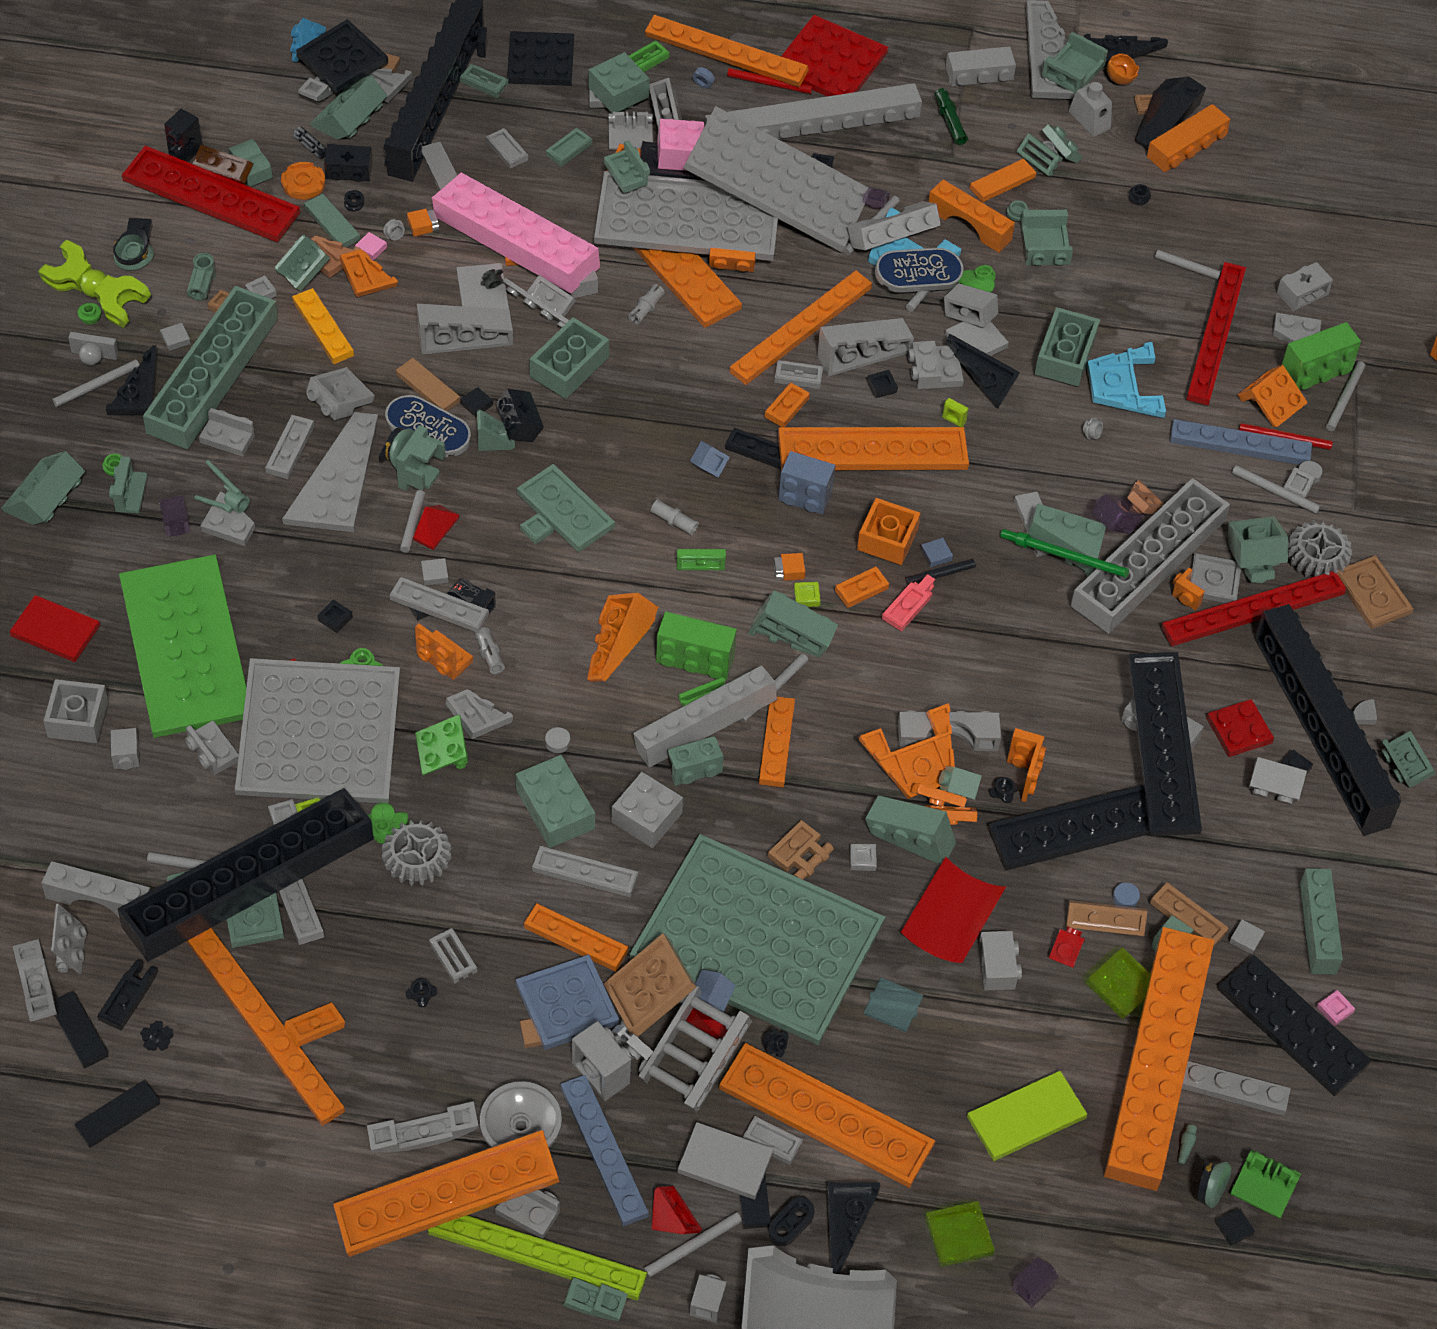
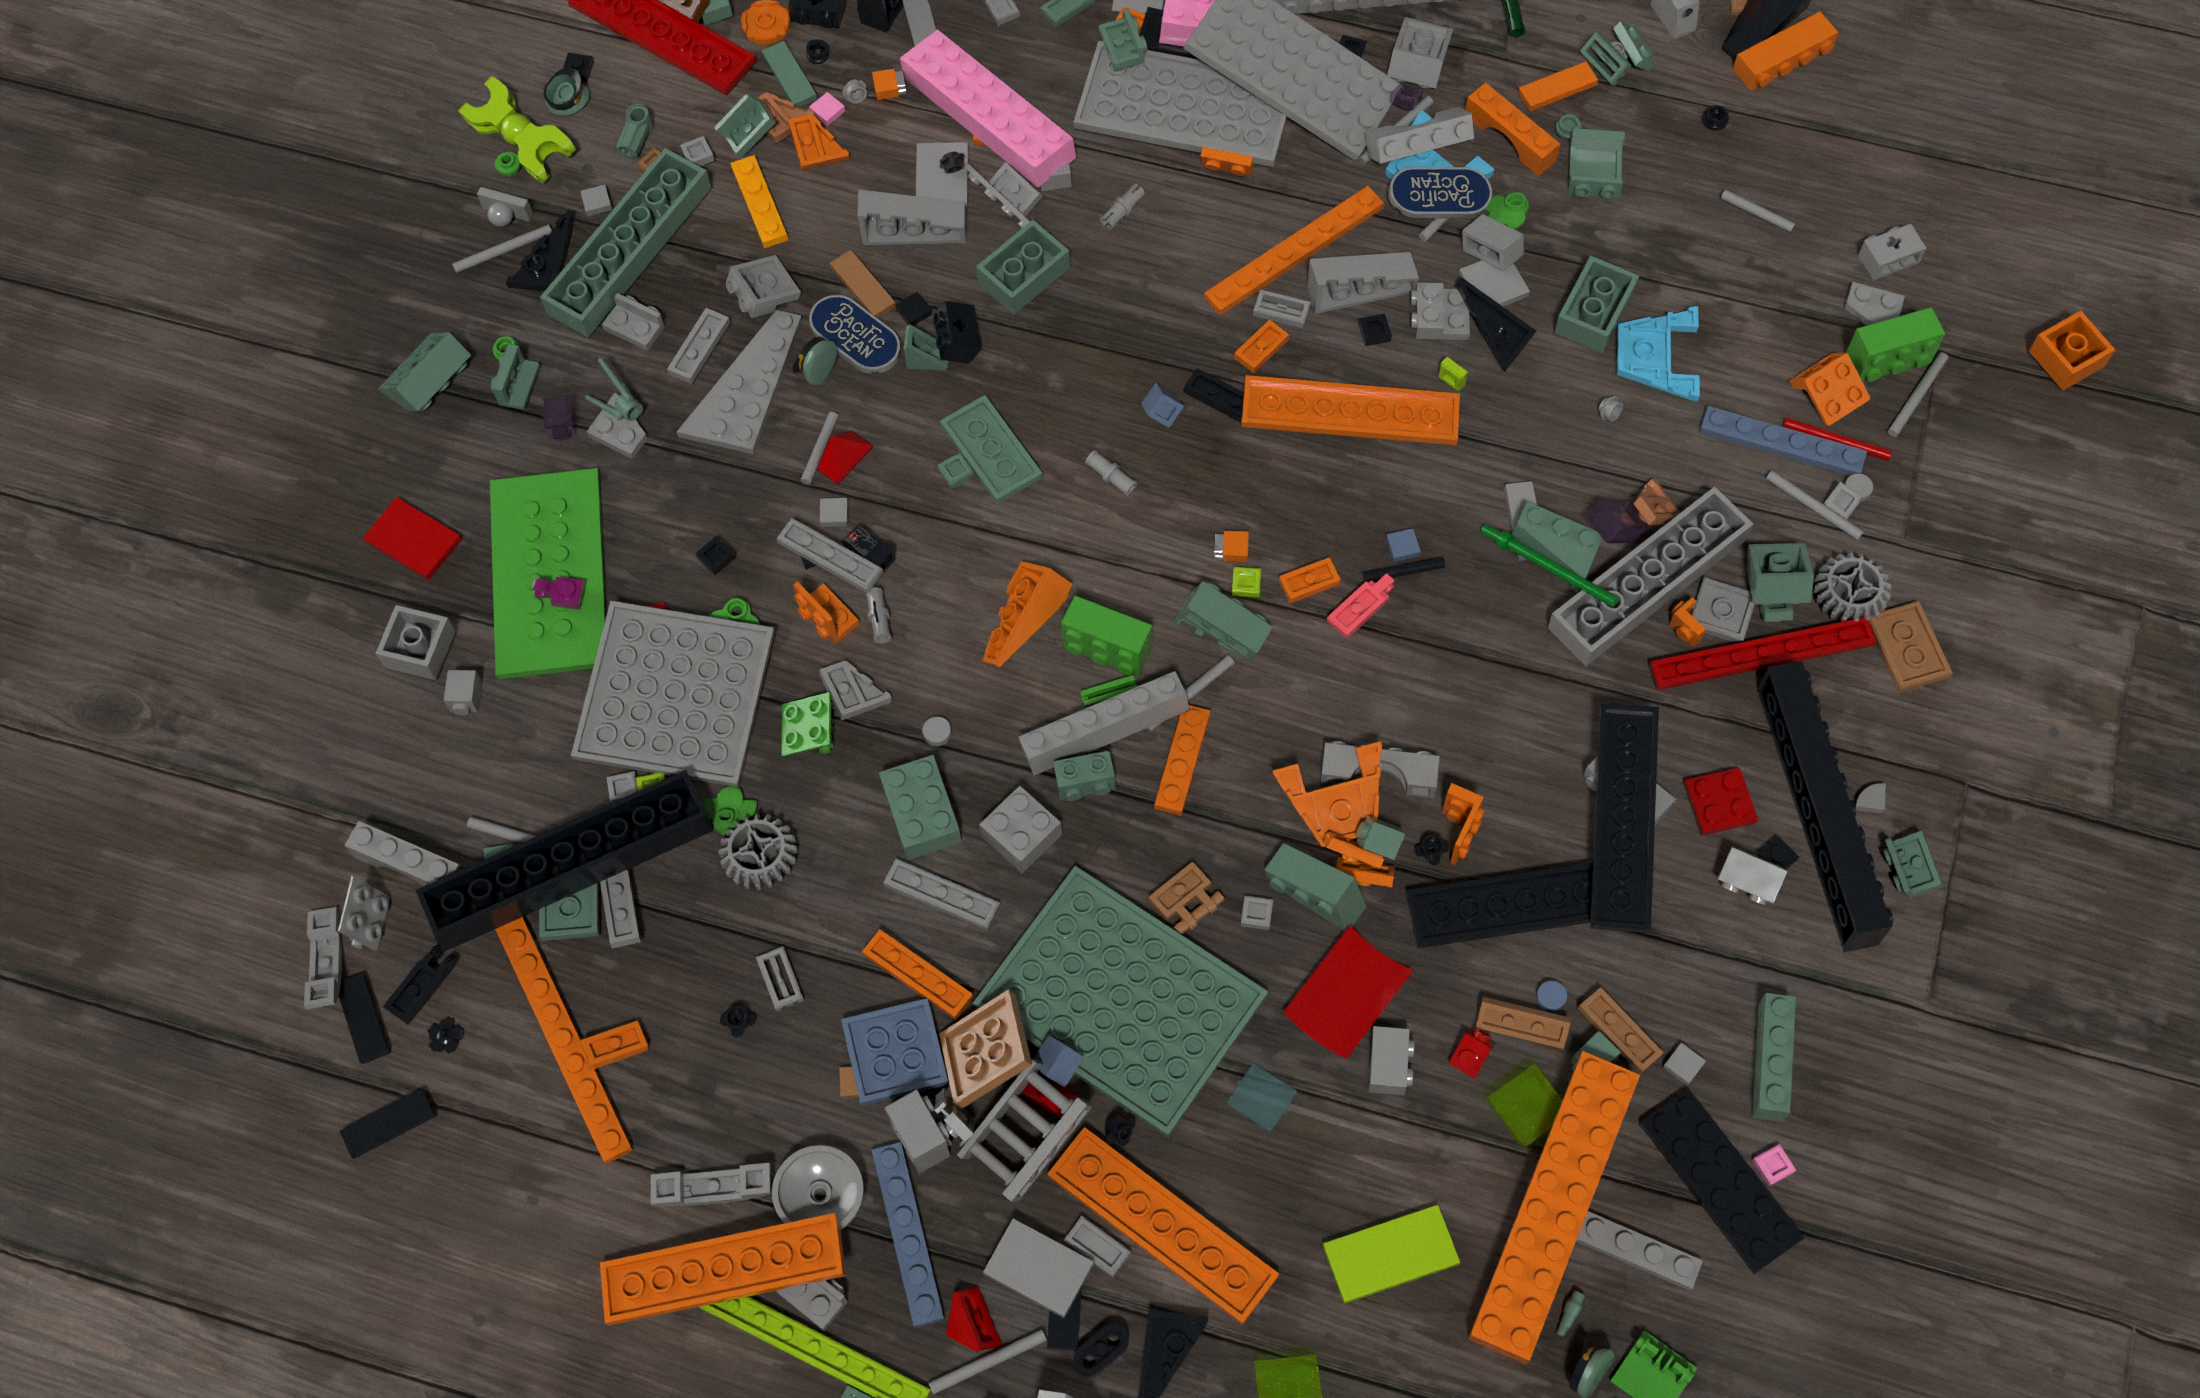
camera: 15 degrees right, 10 degrees up
(204, 657) = (564, 593): none -> magenta plate
(212, 746) = (558, 699): light grey bracket -> none
(412, 459) = (827, 378): sand green panel -> none
(692, 284) = (1180, 187): orange plate -> none
(701, 559) = (1132, 528): bright green tile -> none
(806, 482) = (1265, 447): sand blue brick -> none
(881, 162) = (1419, 53): none -> light grey slope
(888, 531) = (1350, 516): orange brick -> none
(1216, 333) = (1776, 302): red plate -> none

